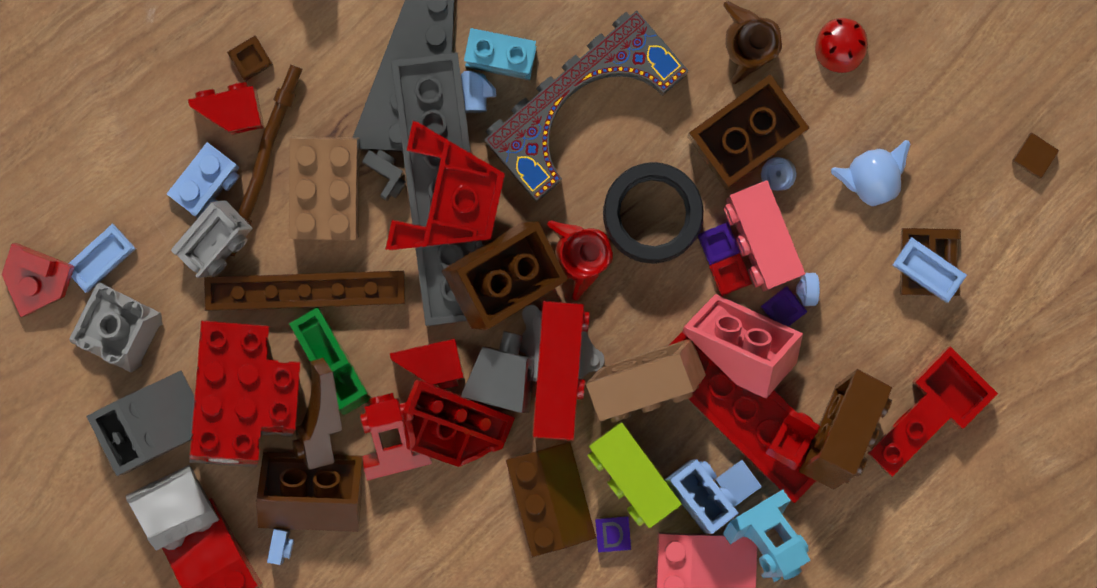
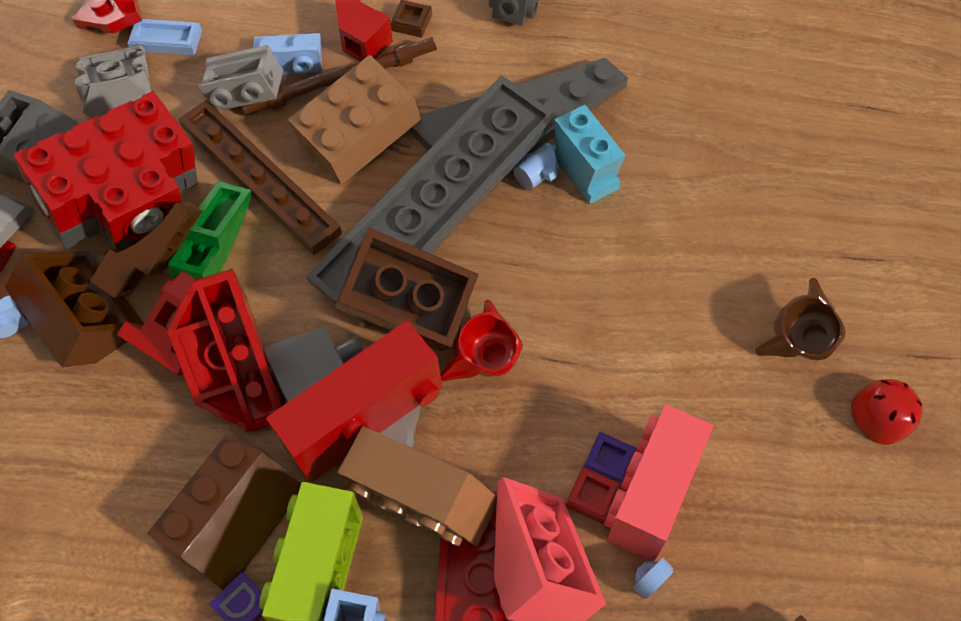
camera: 45 degrees right, 25 degrees down
(383, 164) = (415, 149): dark grey bracket -> none
(433, 363) = (278, 307): red slope -> none
(462, 198) = (438, 208): red wing -> none
(627, 51) = (686, 243): arch -> none
(655, 172) = (587, 330): black tyre -> none
(748, 132) = (737, 388): reddish brown brick -> none
(779, 173) = (724, 454): light blue tile -> none
(784, 307) = (613, 572): dark purple tile -> none
(875, 174) = (818, 542): light blue piece -> none

